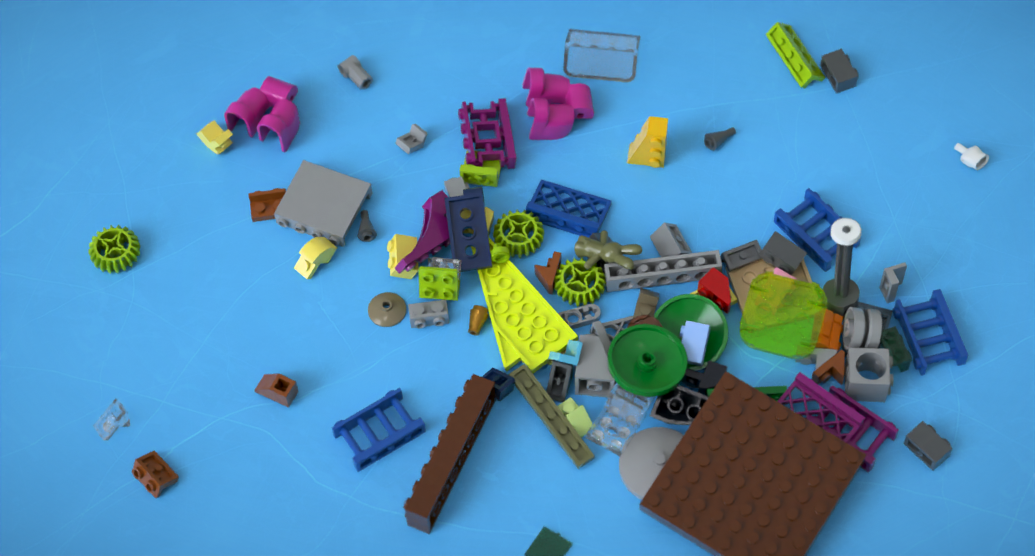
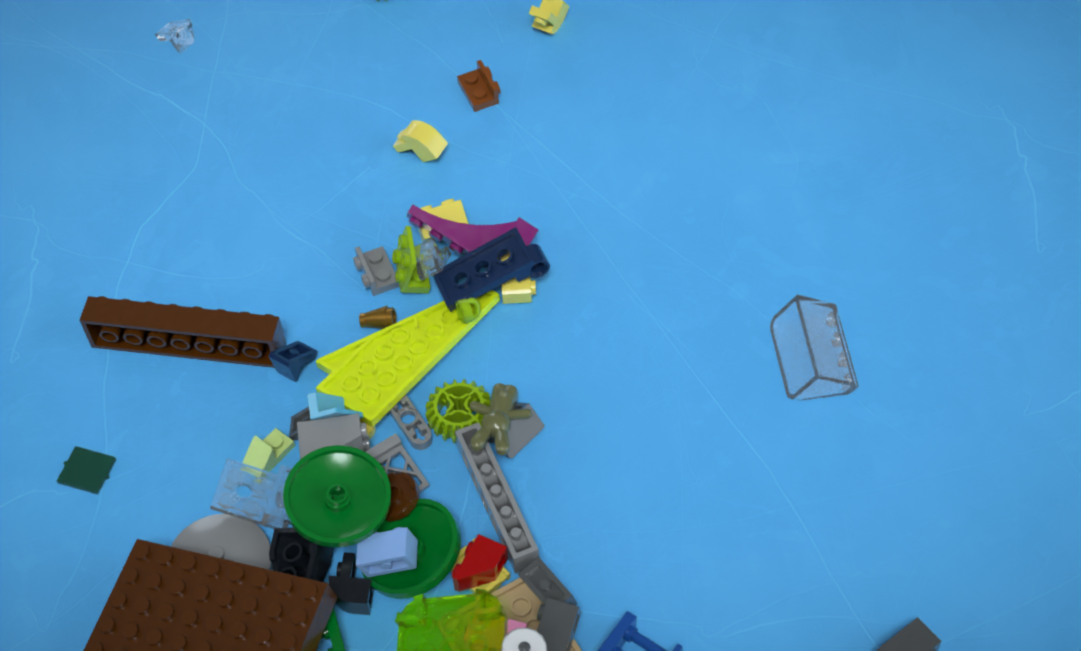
camera: 75 degrees right, 5 degrees down
(154, 473) = (123, 84): dark orange bracket -> none
(254, 103) = (592, 46): dark pink piece -> none
(277, 388) = (239, 157): slope -> none
(322, 202) = (494, 129): light grey panel -> none
(352, 68) = (689, 109): light grey piece -> none
(366, 229) = (473, 180): dark grey cone -> none
(383, 447) = (202, 279): blue fence -> none
(387, 316) = (370, 238): dark tan dish -> none
(413, 140) = (609, 190): light grey bracket -> none
(455, 186) = (554, 249): light grey brick -> none
(486, 175) = (595, 268): lime bracket -> none
(501, 133) = (648, 276): magenta fence -> none
(517, 239) = (512, 337): lime gear -> none
(547, 274) = (458, 370): dark orange slope -> none
(550, 119) = (729, 303): dark pink piece -> none
(552, 416) = (259, 421): olive plate -> none
(563, 219) = (545, 374): blue fence -> none
(646, 303) = (451, 493): dark tan slope -> none
(650, 143) = (683, 436): yellow wedge -> none
(669, 241) = (549, 502): light grey panel -> none
(715, 139) = (731, 517): dark grey cone -> none
(794, 54) = (908, 582): lime fence -> none

